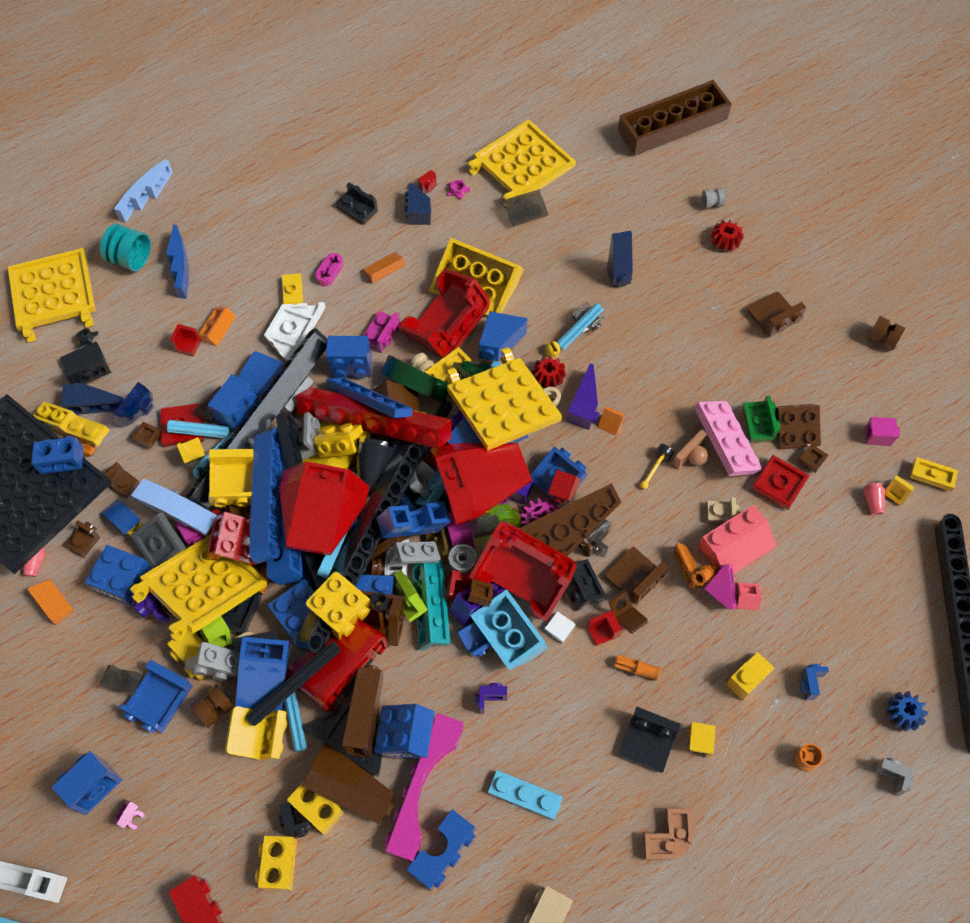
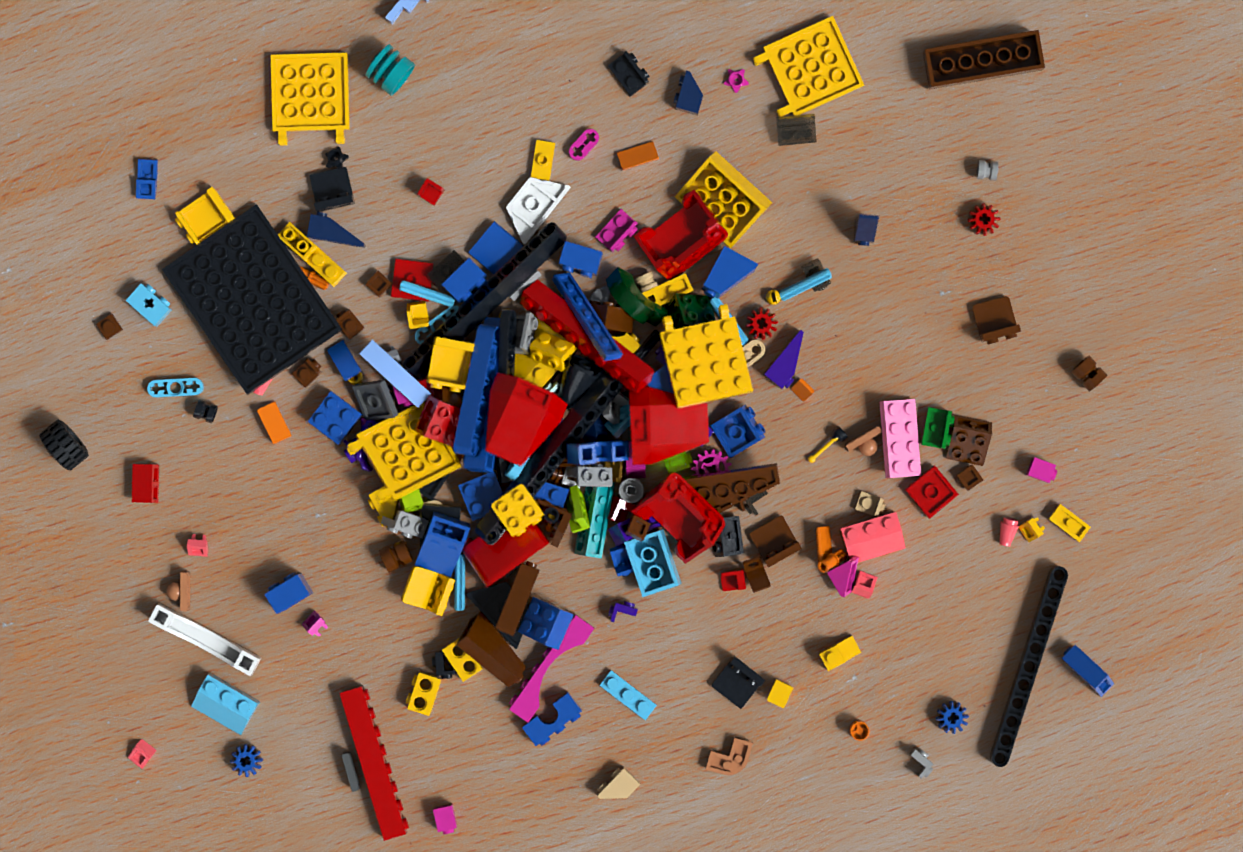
camera: 15 degrees right, 25 degrees up
(57, 455) = (299, 298): blue brick -> none
(120, 680) = (325, 513): clear smoke bracket -> none
(136, 404) = (373, 255): clear blue slope -> none
(157, 698) = (350, 535): blue panel -> none
(179, 264) = (439, 89): blue slope -> none
(216, 325) = (461, 178): orange slope -> none
(293, 683) = (466, 562): black axle -> none
(427, 181) = (707, 68): red plate -> none
(483, 525) = (656, 471): clear smoke bracket -> none
(560, 627) = (697, 567): white tile -> none
(564, 487) = (737, 449): red brick -> none
(637, 667) = (749, 620): orange axle -> none
(809, 682) = (883, 673): blue bracket -> none

